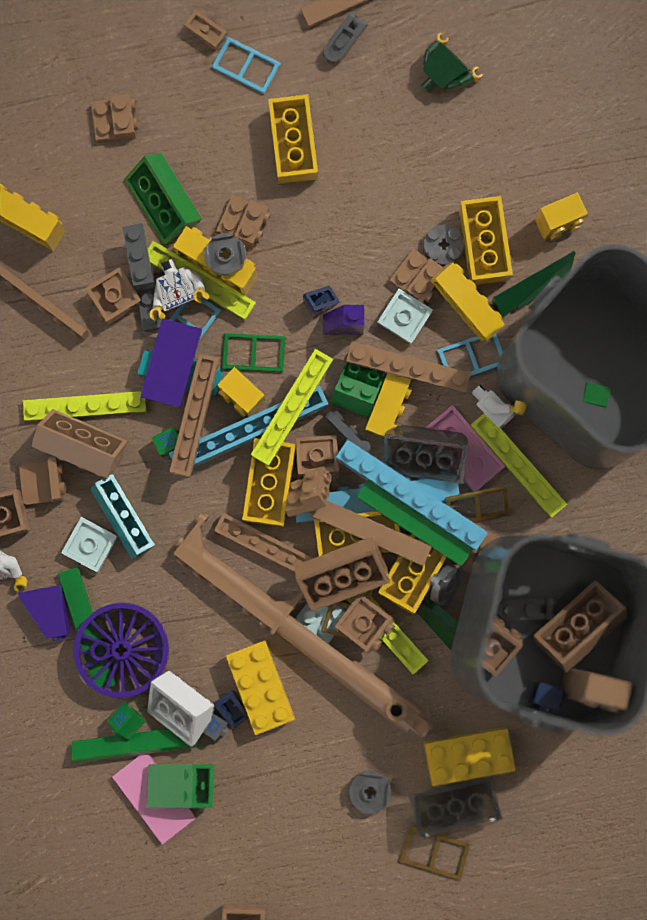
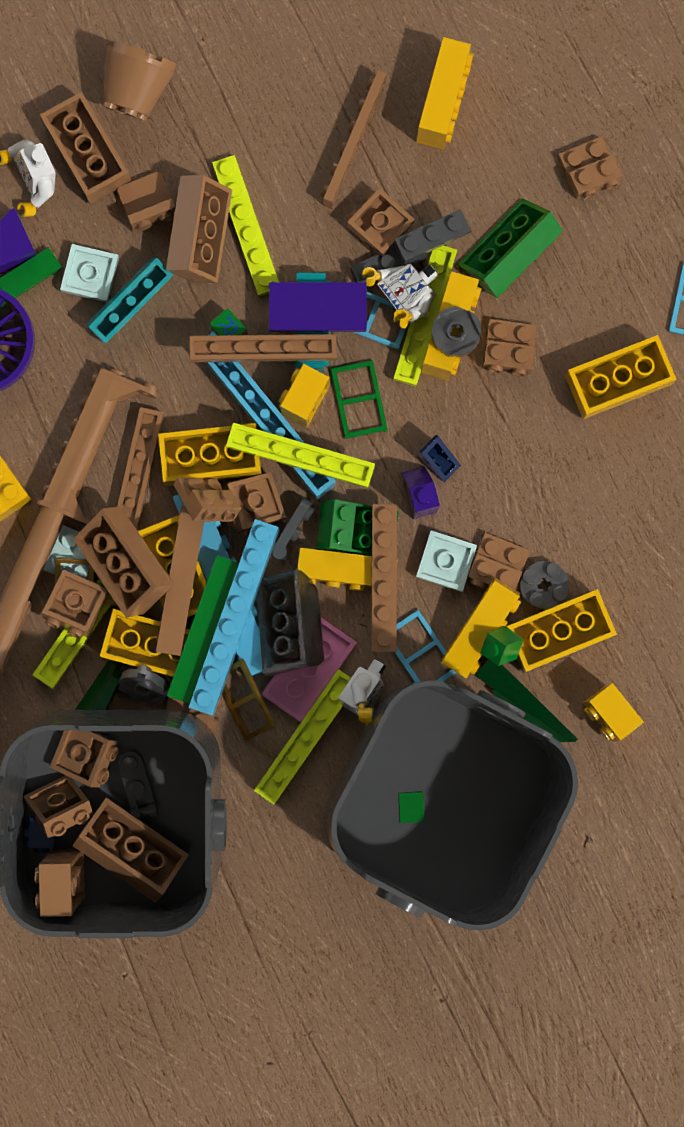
camera: 70 degrees right, 0 degrees up
(488, 287) = (501, 646): none -> green brick
(531, 676) = (59, 806): none -> medium nougat plate

